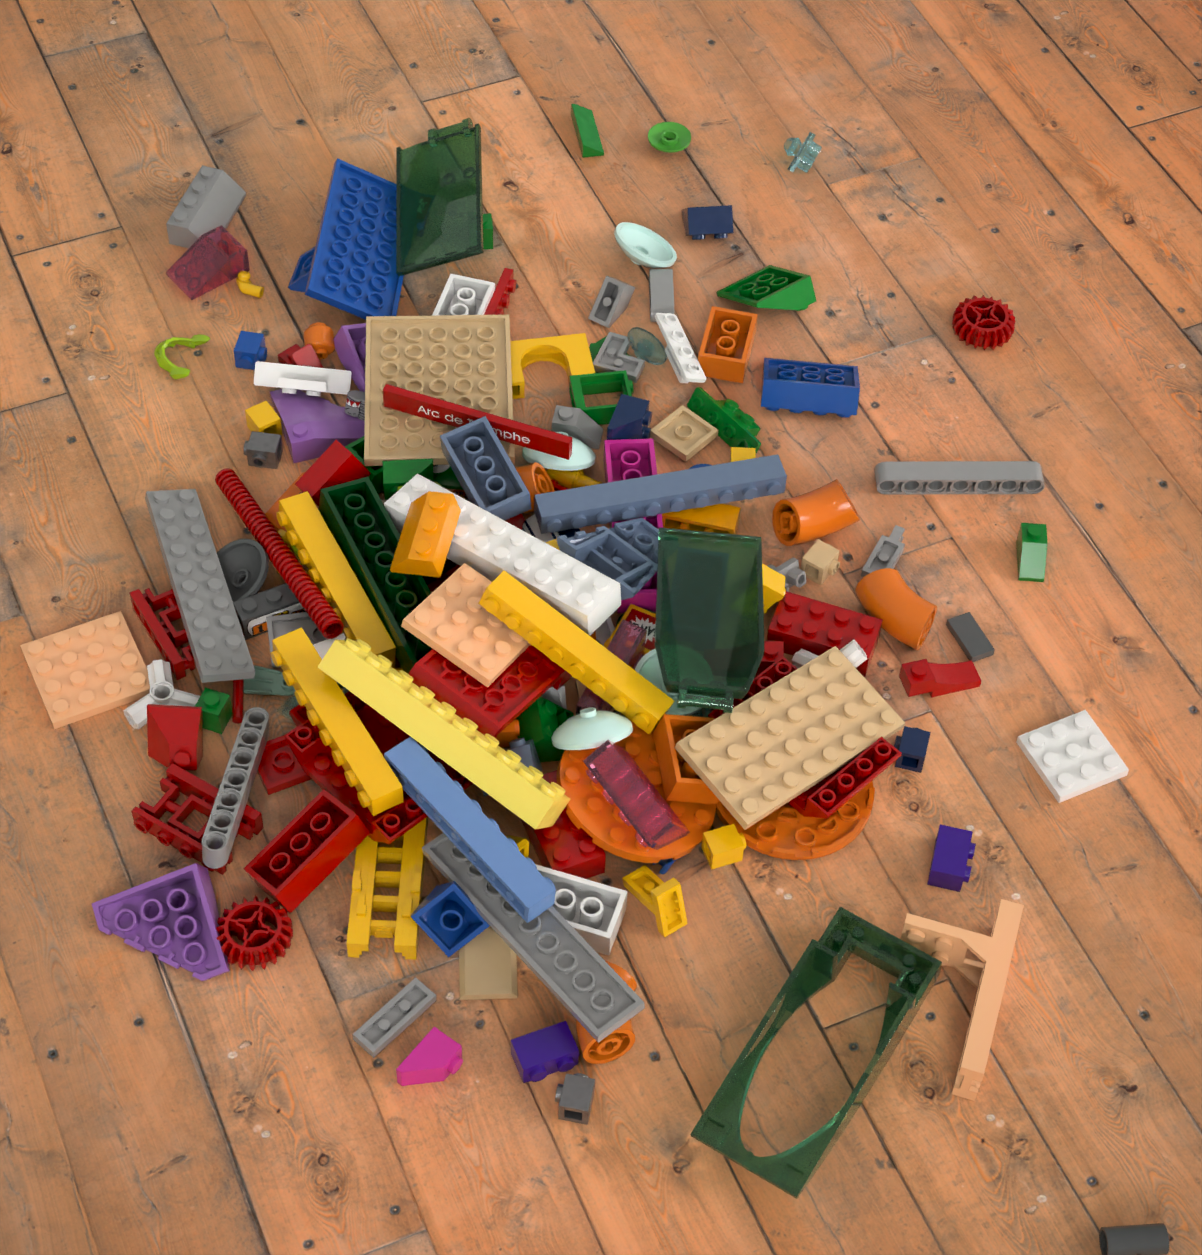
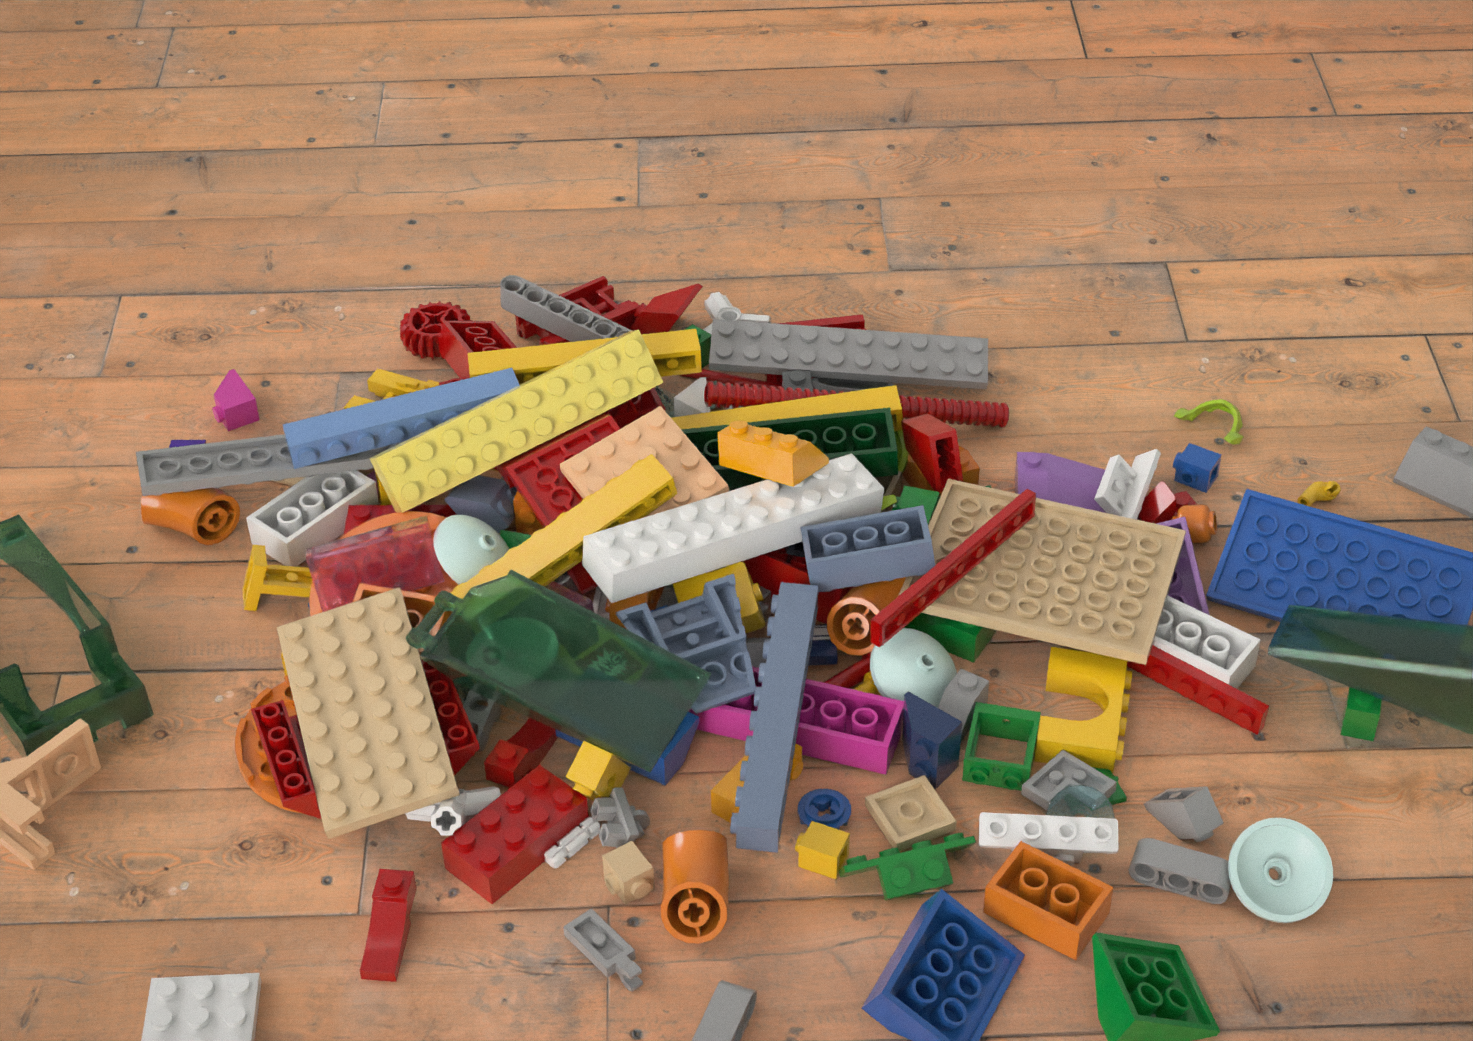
camera: 115 degrees right, 10 degrees down
(87, 669) = (797, 288): light nougat plate -> none
(170, 918) = (482, 290): medium lavender slope -> none
(209, 263) = (1360, 465): clear pink slope -> none
(263, 419) = (1079, 449): yellow brick -> none
(263, 450) = (1031, 440): flat silver brick -> none
(394, 1017) = (293, 392): light grey plate -> none
(575, 1098) = (122, 476): flat silver brick -> none
(708, 221) = (1331, 975): dark blue slope -> none
(903, 611) = (500, 909): orange brick -> none
(913, 747) = (308, 857): dark blue brick -> none
(950, 858) = (151, 835): dark purple brick -> none
(970, 637) = (433, 993): dark grey tile -> none

